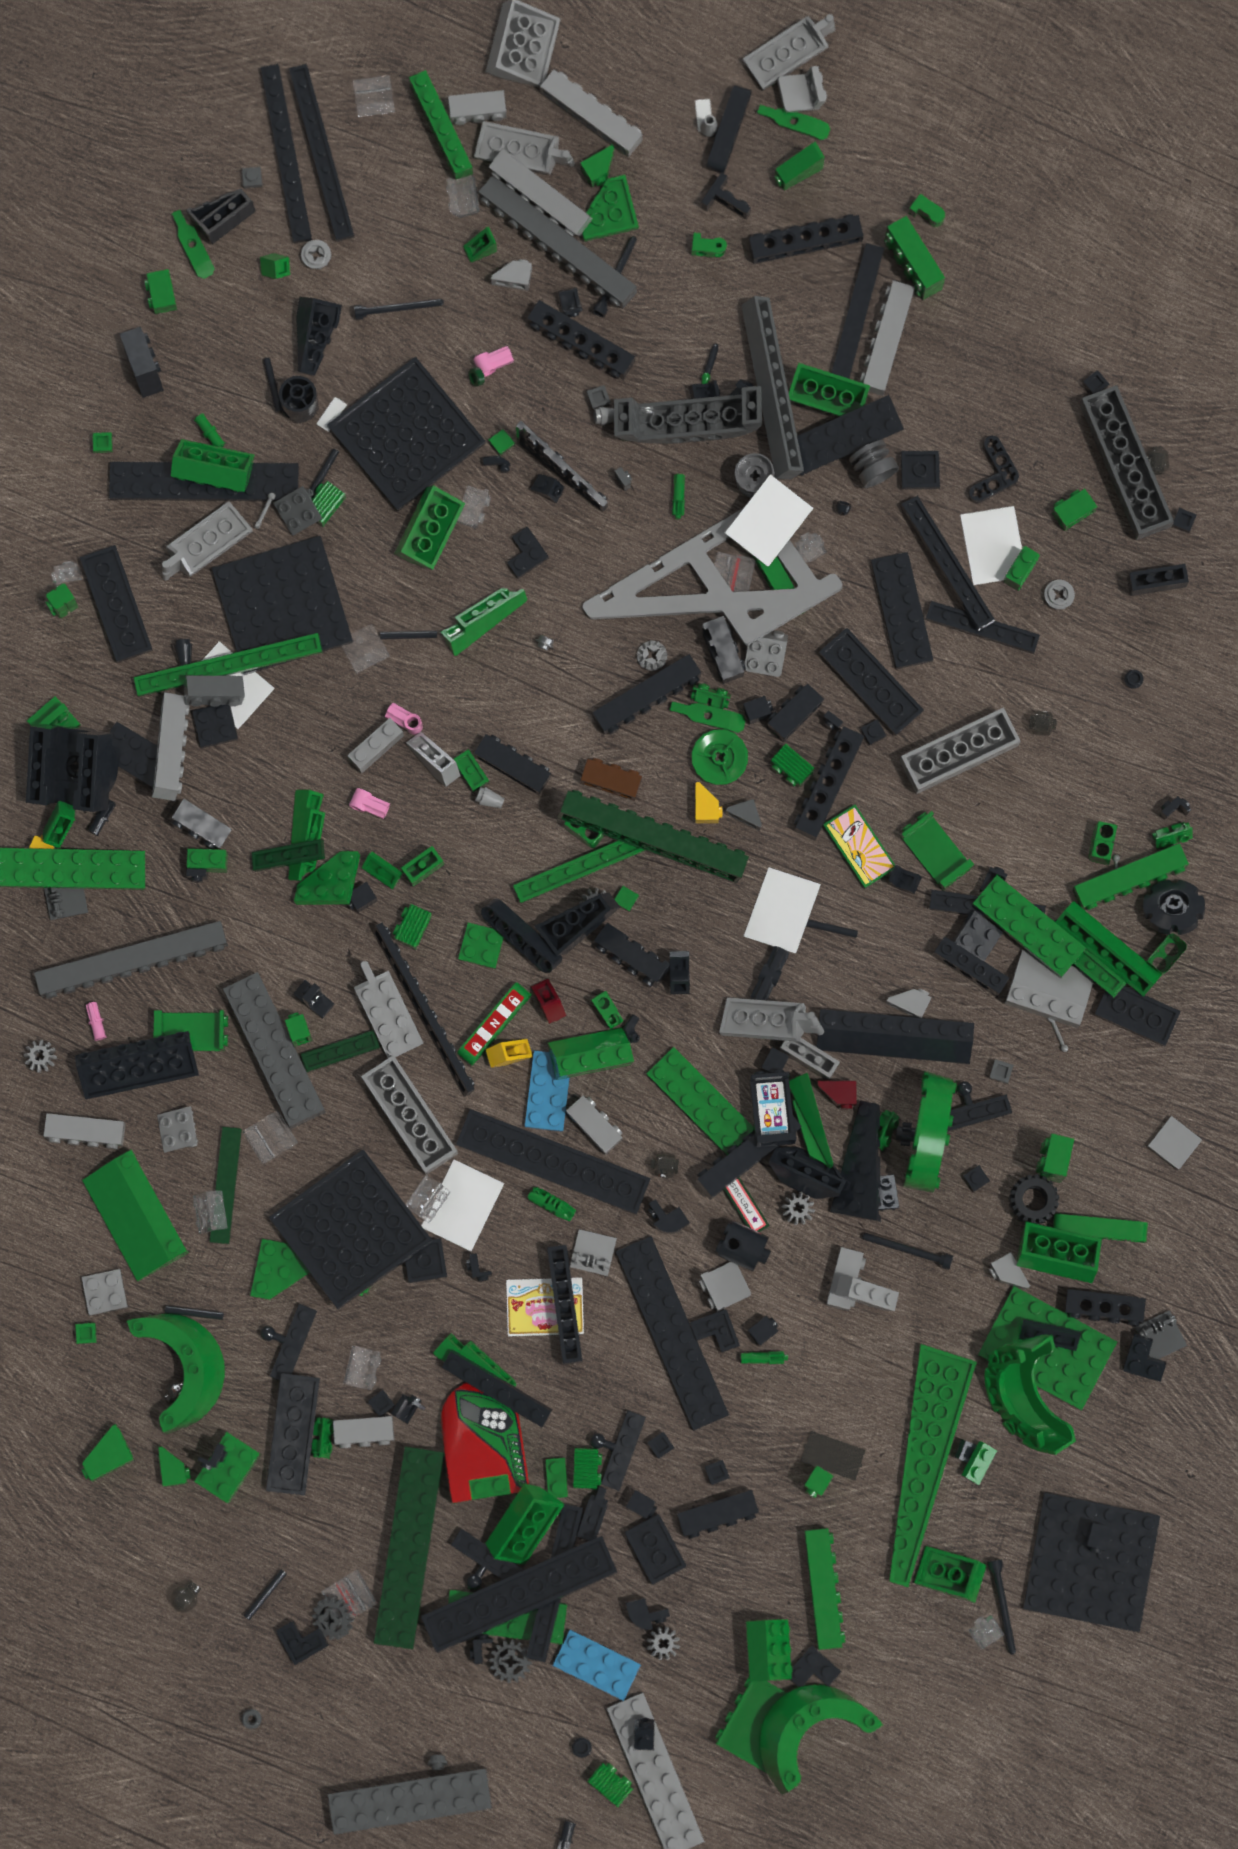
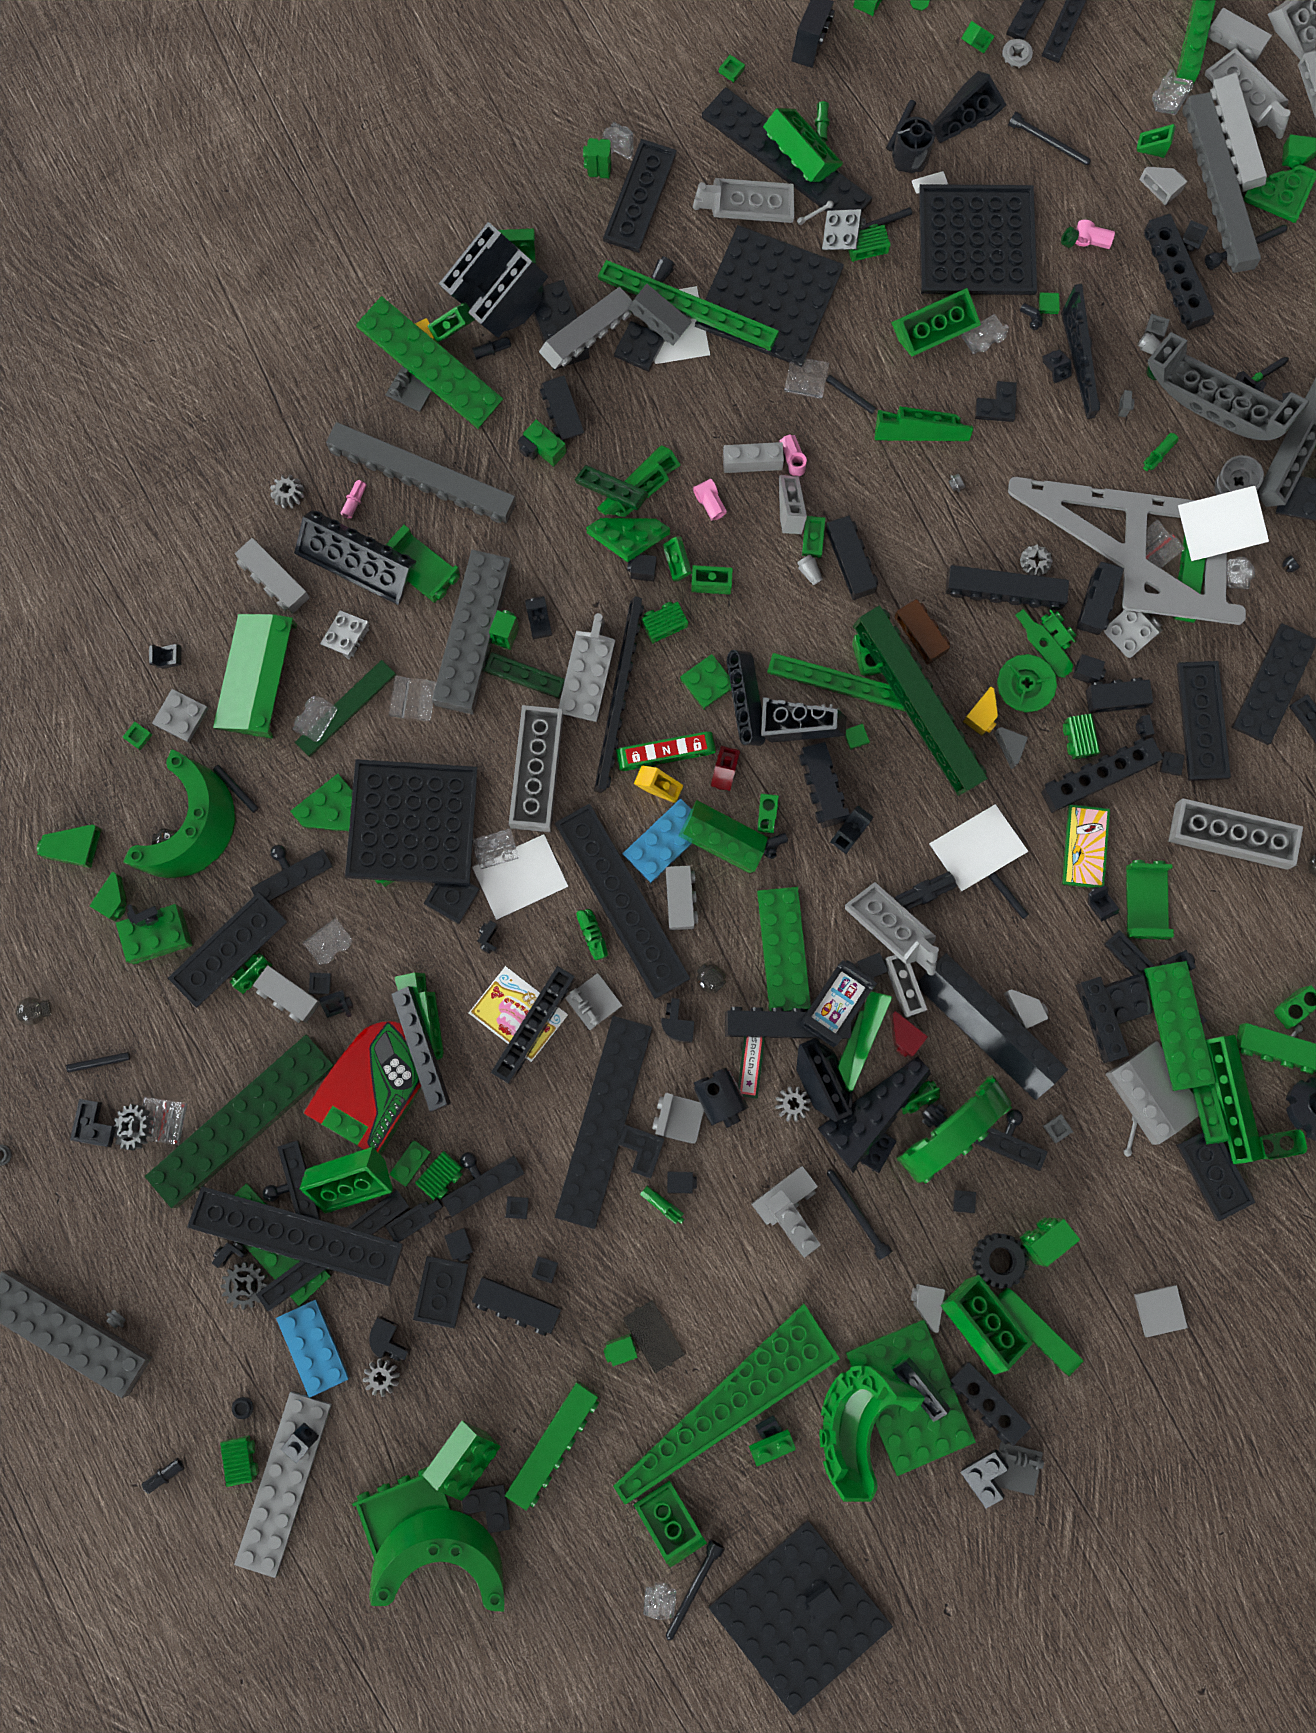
camera: 40 degrees right, 0 degrees up
(56, 1256) = (165, 656): none -> black bracket

